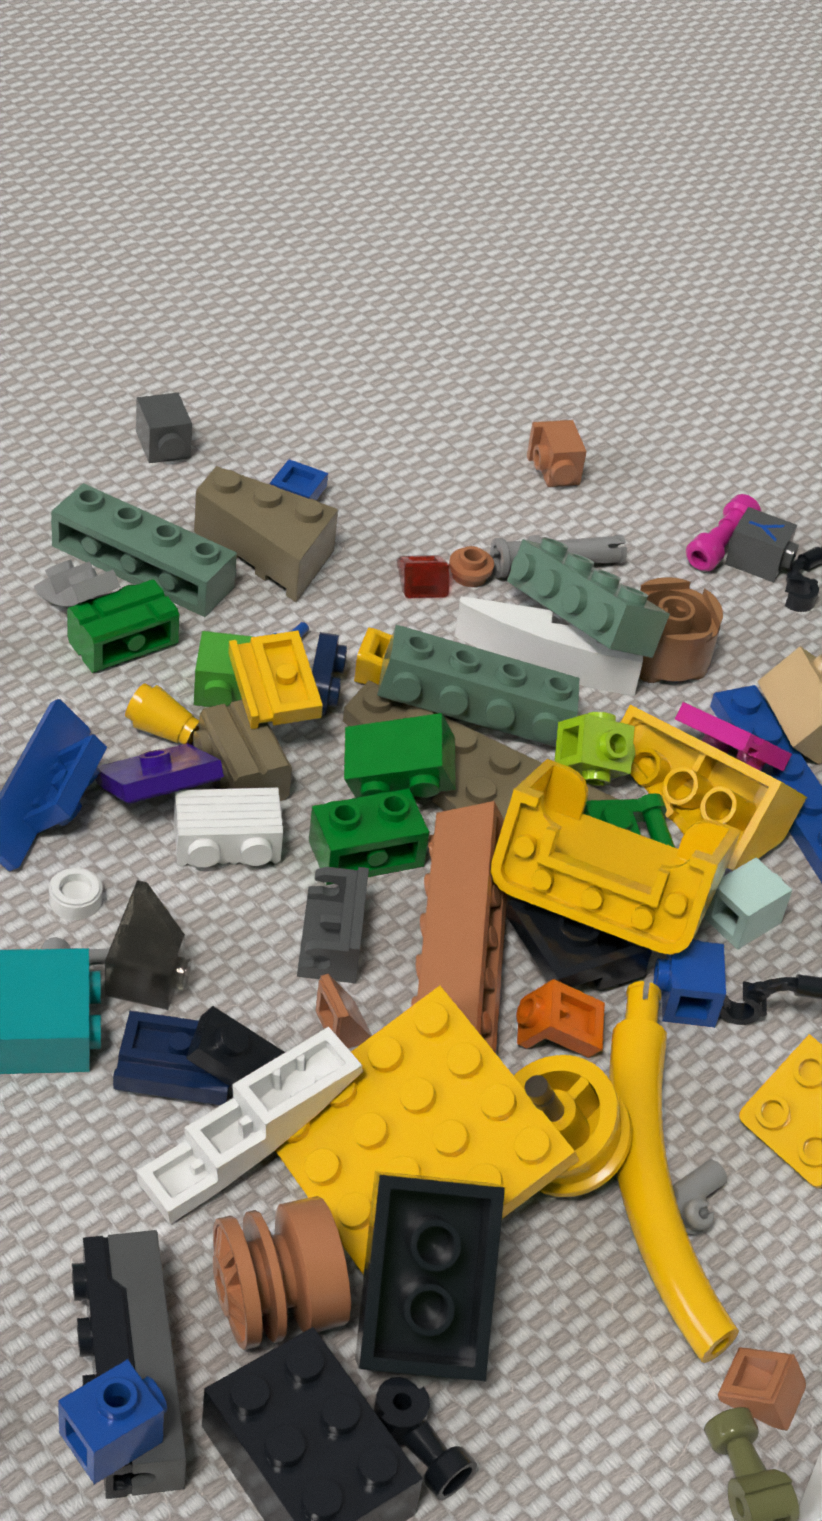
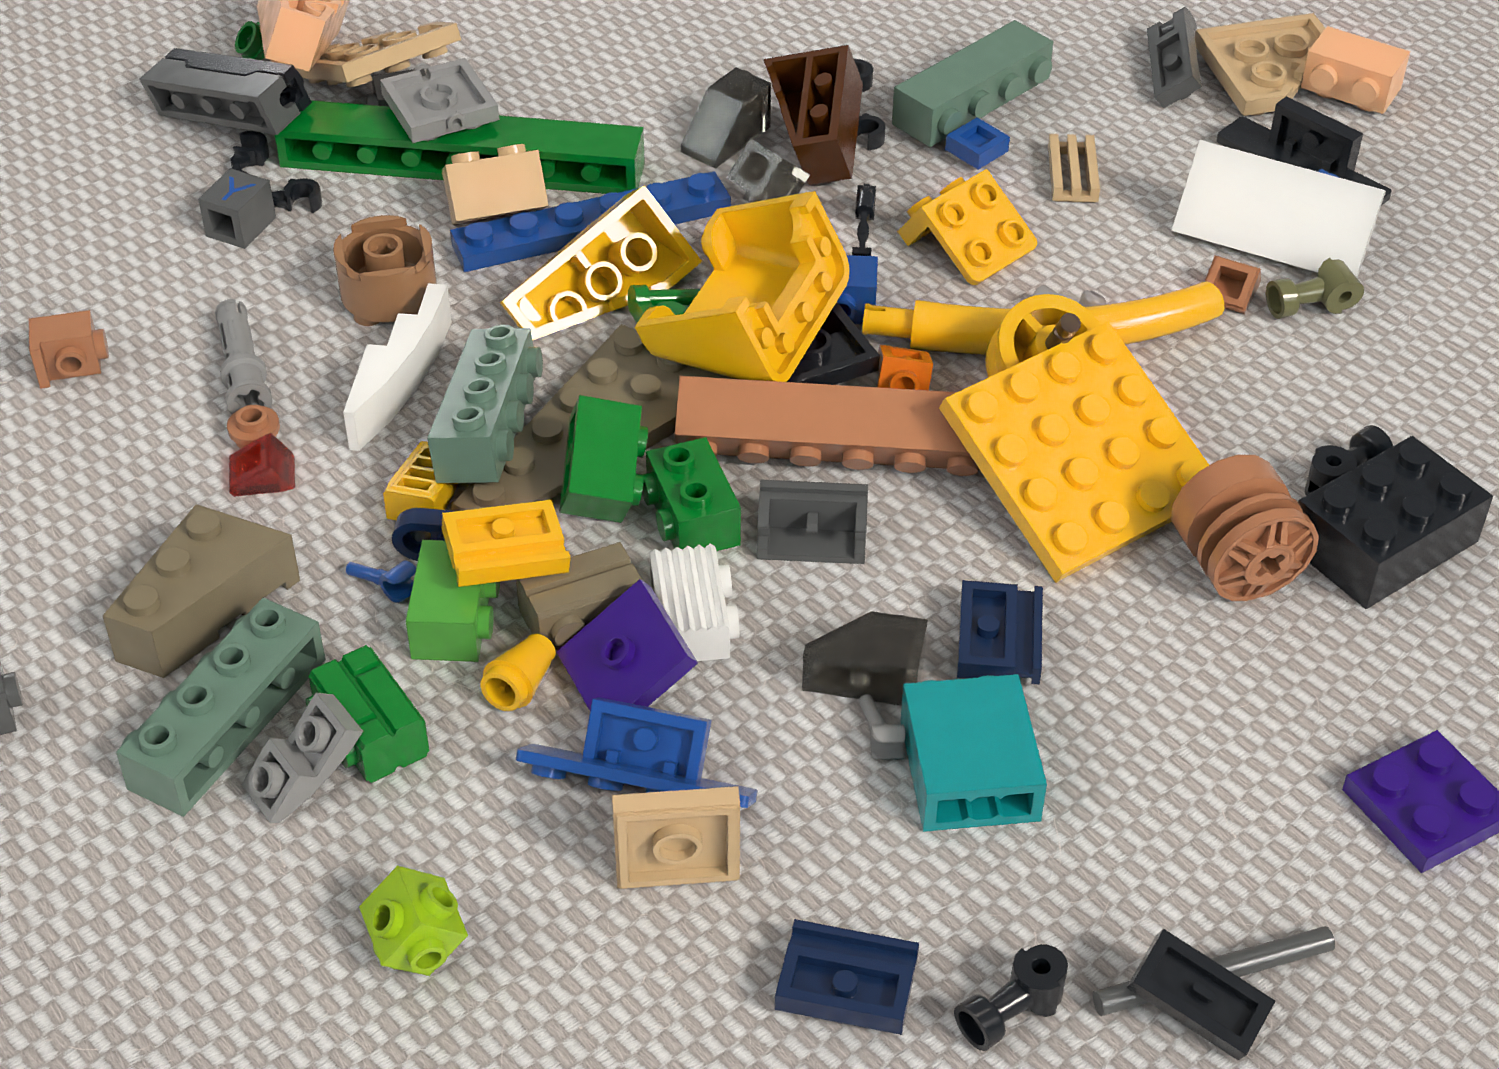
camera: 85 degrees left, 0 degrees up
(75, 893) = (787, 735): white tile -> none
(112, 1420) = (1443, 606): blue brick -> none
(130, 1321) = (1339, 638): piece -> none
(228, 1047) = (1007, 569): black plate -> none
(249, 1127) = (1079, 552): white slope -> none
(301, 479) = (99, 569): blue plate -> none
(340, 1013) = (923, 520): nougat slope -> none
(429, 1276) = (1220, 409): black brick -> none
(588, 597) = (359, 309): sand green brick -> none
(596, 747) = (571, 340): lime brick -> none
(708, 548) = (238, 248): dark pink piece -> none
(724, 735) = (561, 225): dark pink plate -> none

